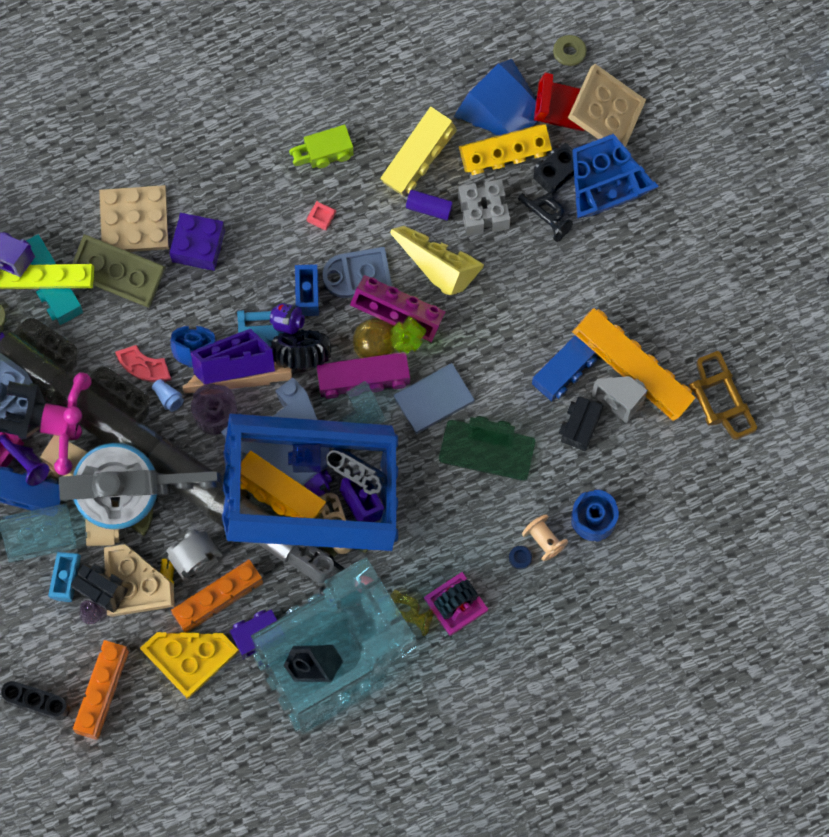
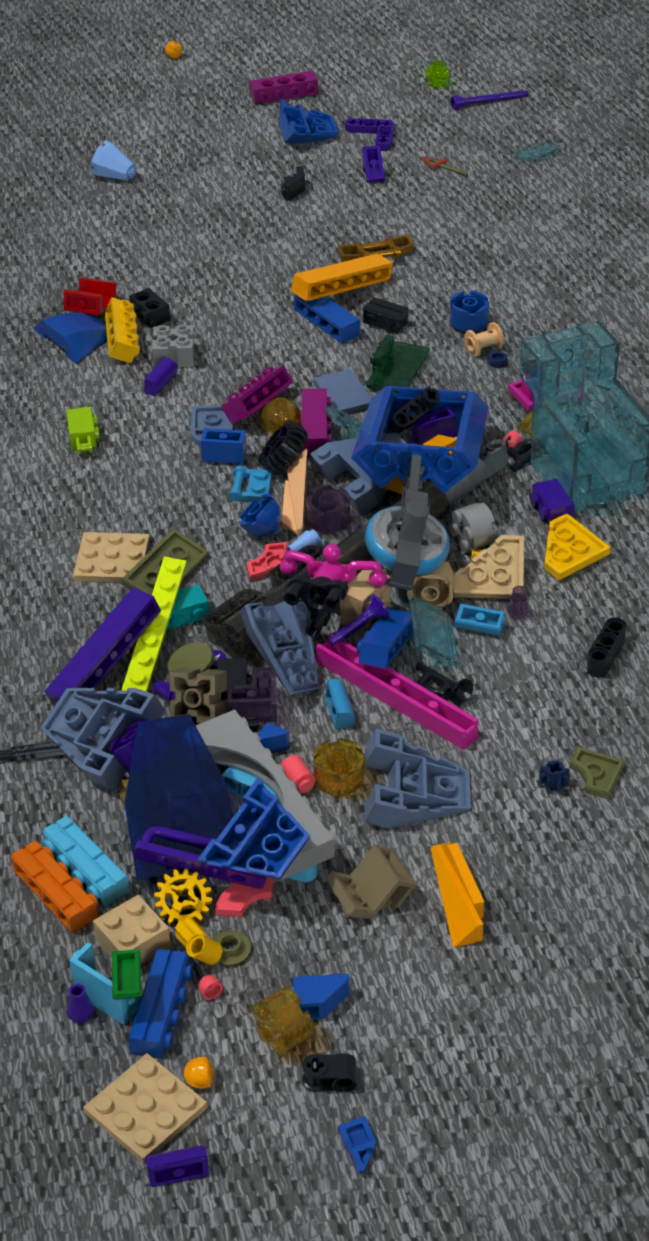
camera: 80 degrees left, 30 degrees down
(99, 587) = (497, 587): black brick -> none
(100, 690) = (598, 600): orange brick -> none
(197, 241) = (151, 511): dark purple brick -> none
(217, 596) = (513, 520): orange brick -> none
(233, 358) = (285, 479): dark purple wedge -> none
(287, 318) = (251, 452): dark purple head -> none
(305, 458) = (396, 430): clear blue brick -> none
(313, 663) = (597, 442): black slope -> none
(321, 215) = (147, 442): coral tile -> none
(408, 328) = (288, 380): clear neon green brick -> none
(419, 152) = (107, 372): light yellow wedge -> none
(443, 268) = (226, 370): light yellow wedge -> none
(559, 227) = (191, 315): black piece -> none
(569, 41) = (39, 296): olive piece -> none
(606, 106) = (106, 272): tan plate -> none
(607, 176) = (169, 277): blue wedge -> none
(620, 395) = (370, 283): light grey slope -> none

